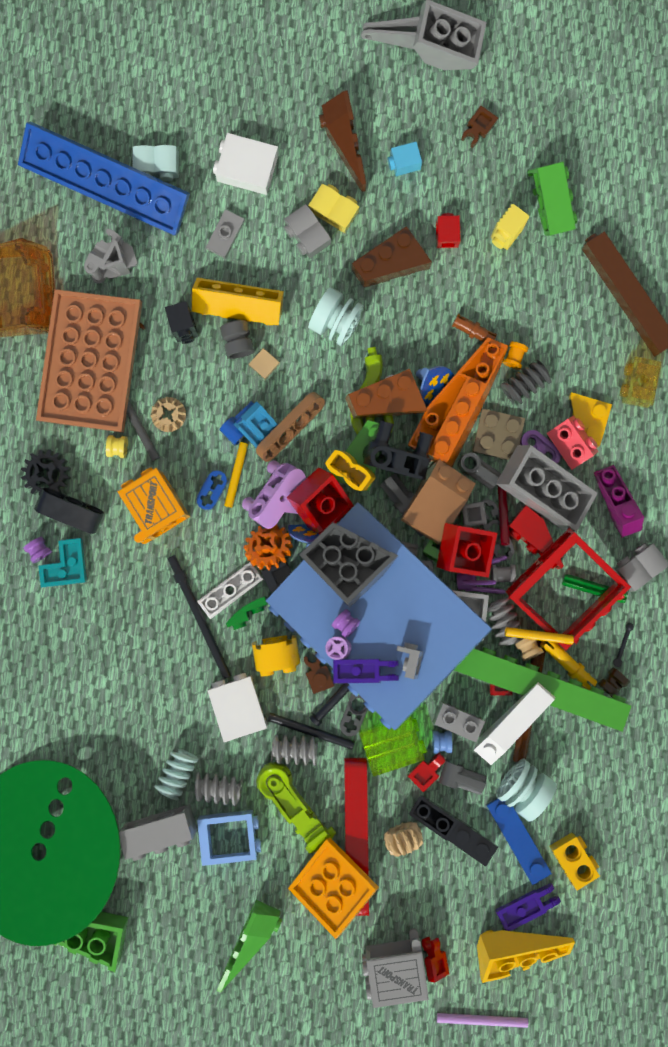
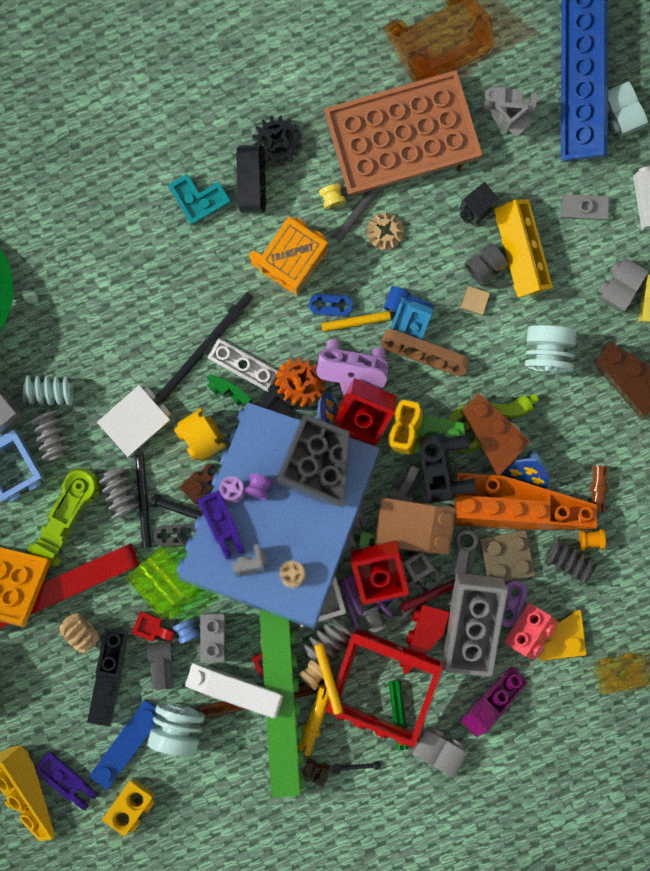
camera: 70 degrees right, 0 degrees up
(37, 549) = (201, 166): medium lavender wheel -> none
(433, 626) = (292, 570): none -> tan wheel

